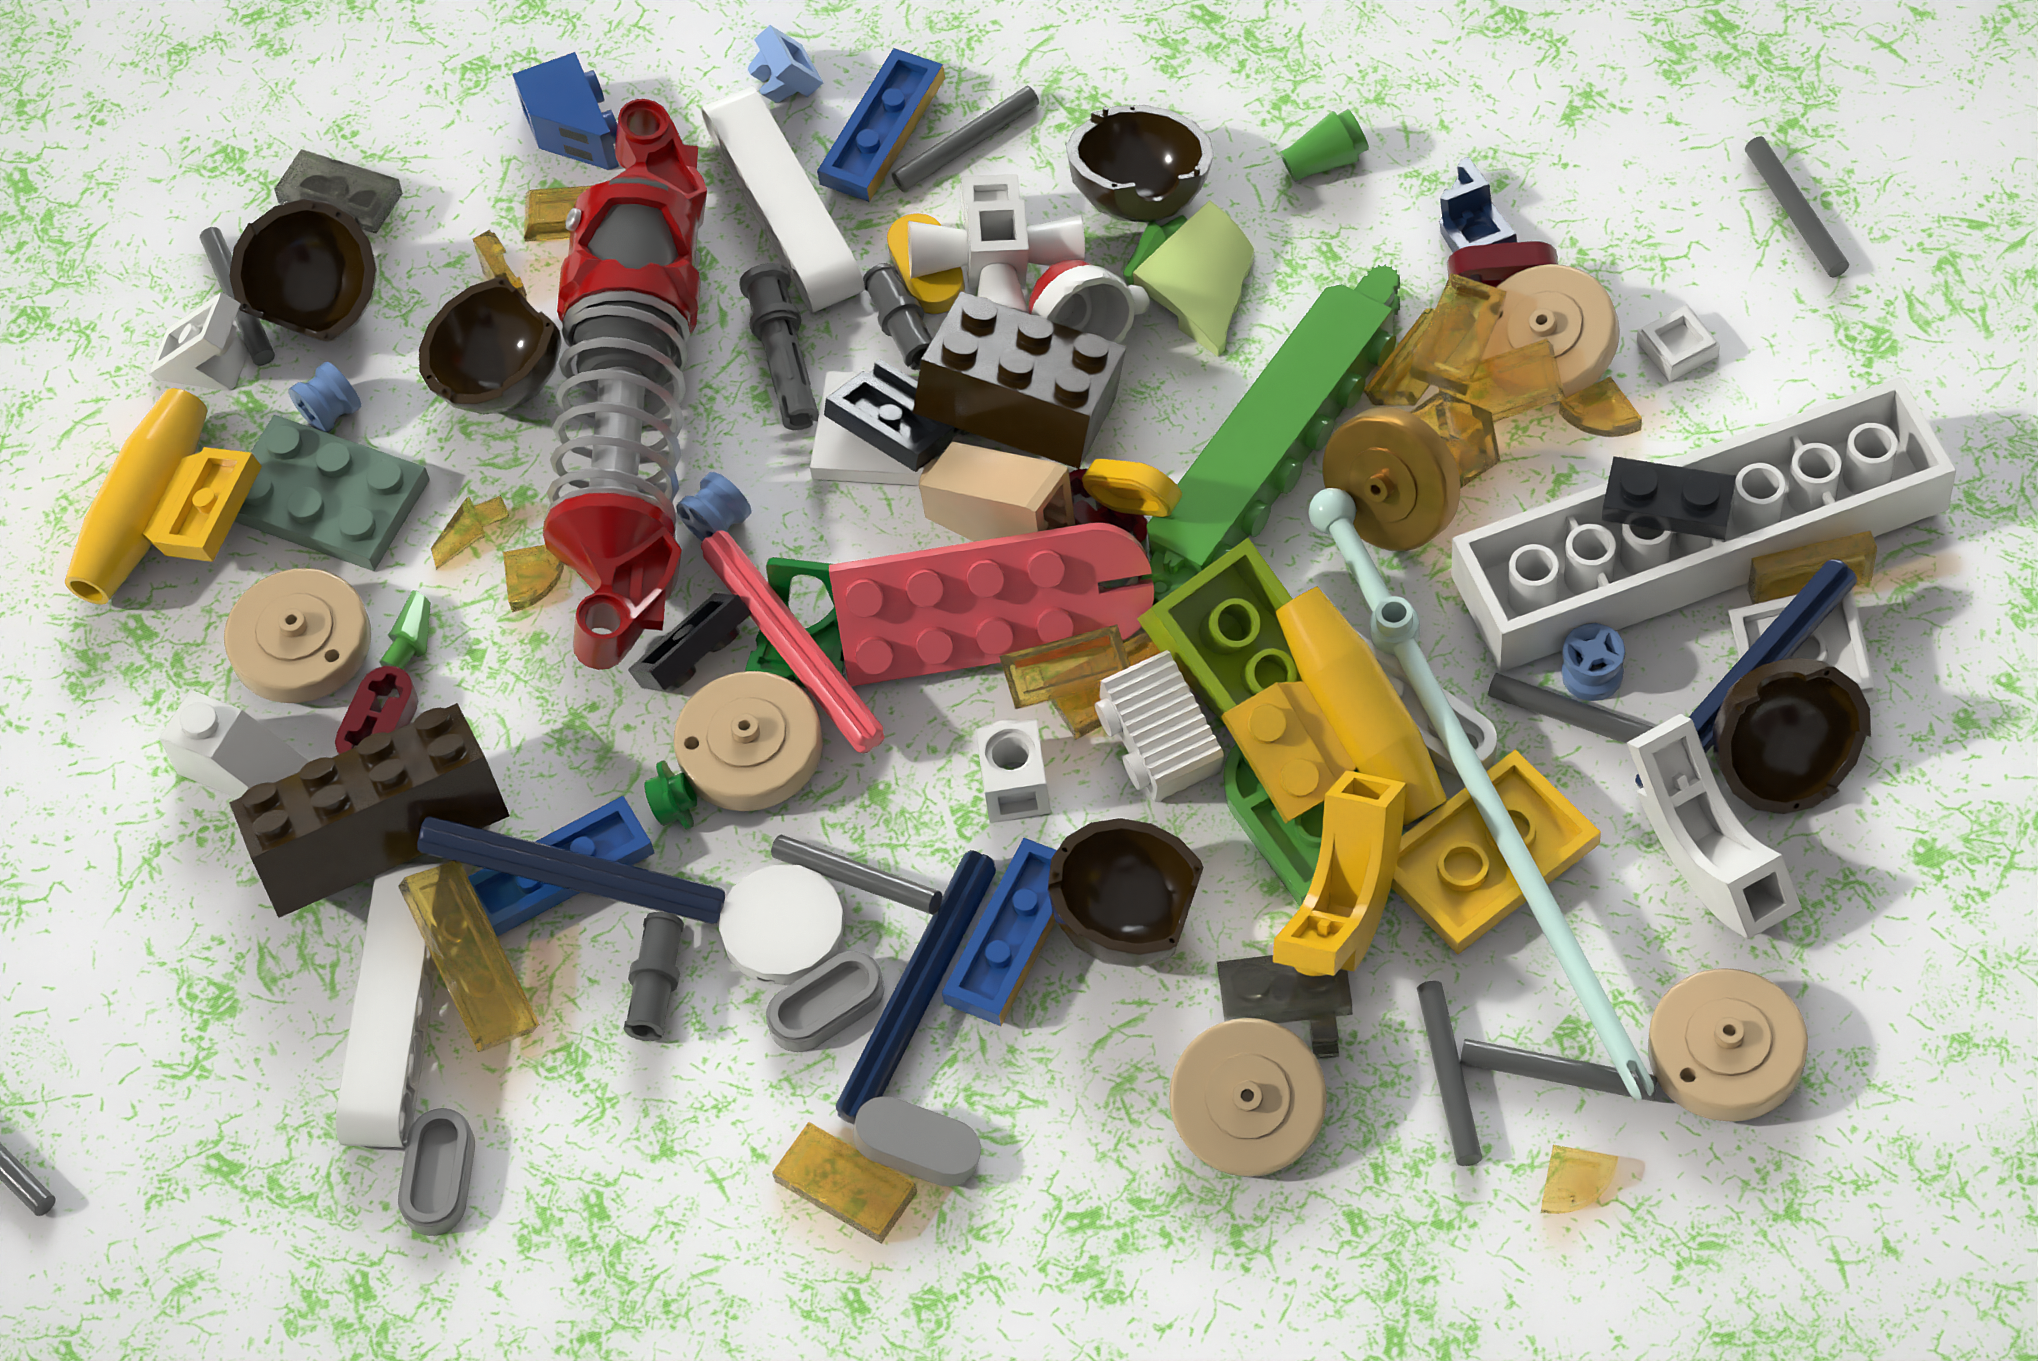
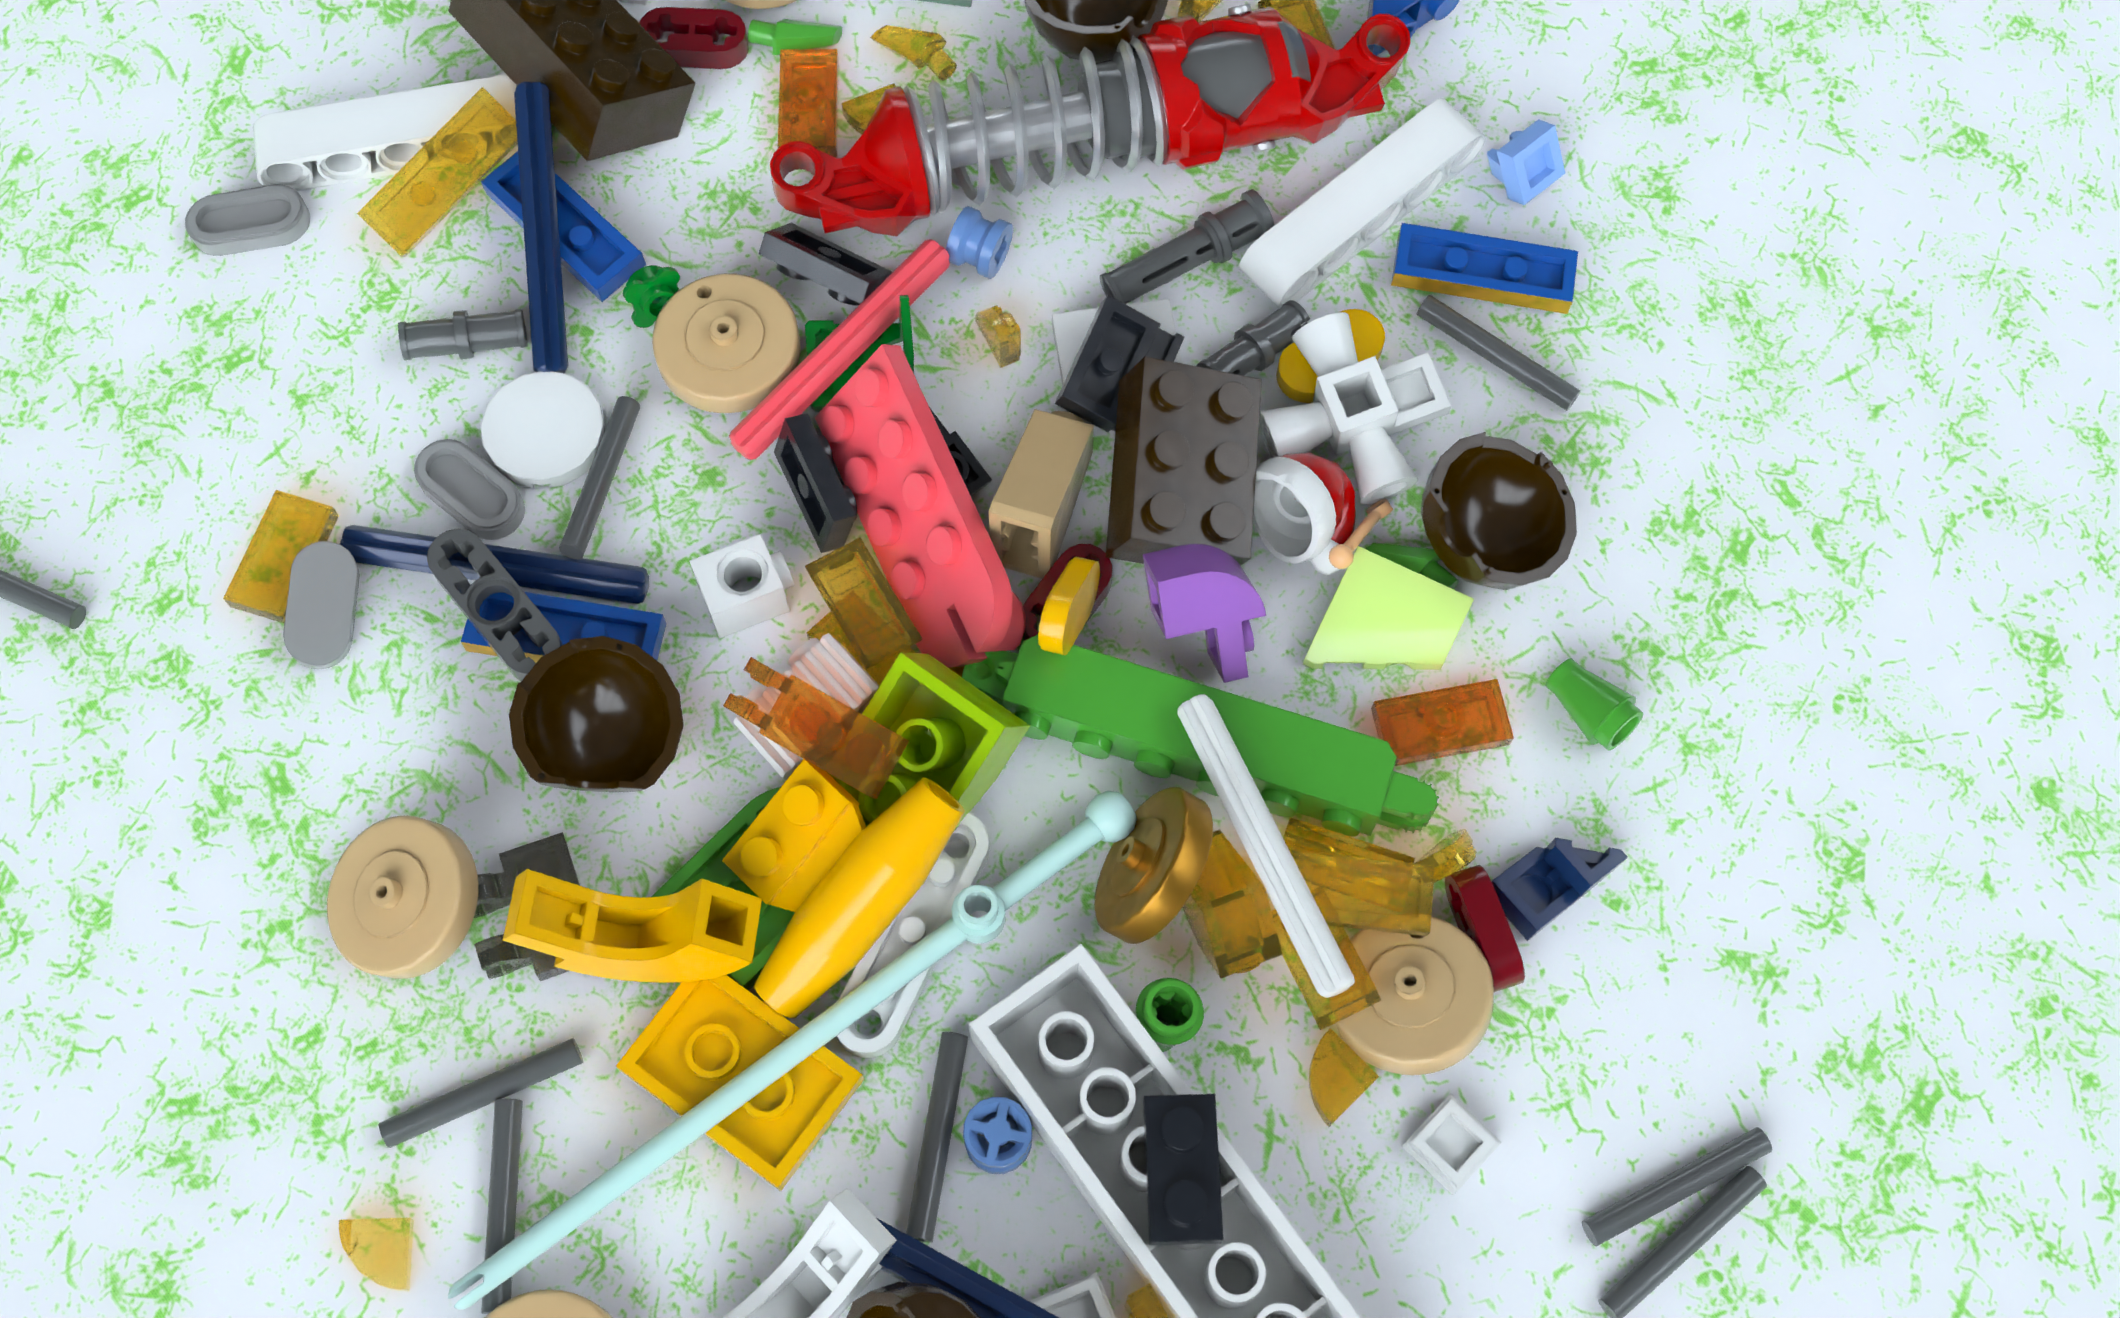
camera: 65 degrees right, 10 degrees up
(493, 633) = (809, 98): none -> clear orange plate
(814, 515) = (1001, 334): none -> clear yellow tile
(927, 689) = (814, 482): none -> black plate
(967, 994) = (492, 580): none -> dark grey beam
(1143, 279) = (1342, 555): none -> light nougat hinge
(1161, 388) = (1209, 592): none -> medium lavender brick
(1199, 693) = (822, 730): none -> clear orange hinge
(1306, 258) = (1443, 722): none -> clear orange plate
(1398, 385) = (1266, 847): none -> white axle
(1431, 273) = (1450, 854): none -> clear yellow tile
(1524, 488) = (1176, 1005): none -> bright green cone
(1750, 199) = (1676, 1186): none -> dark grey bar

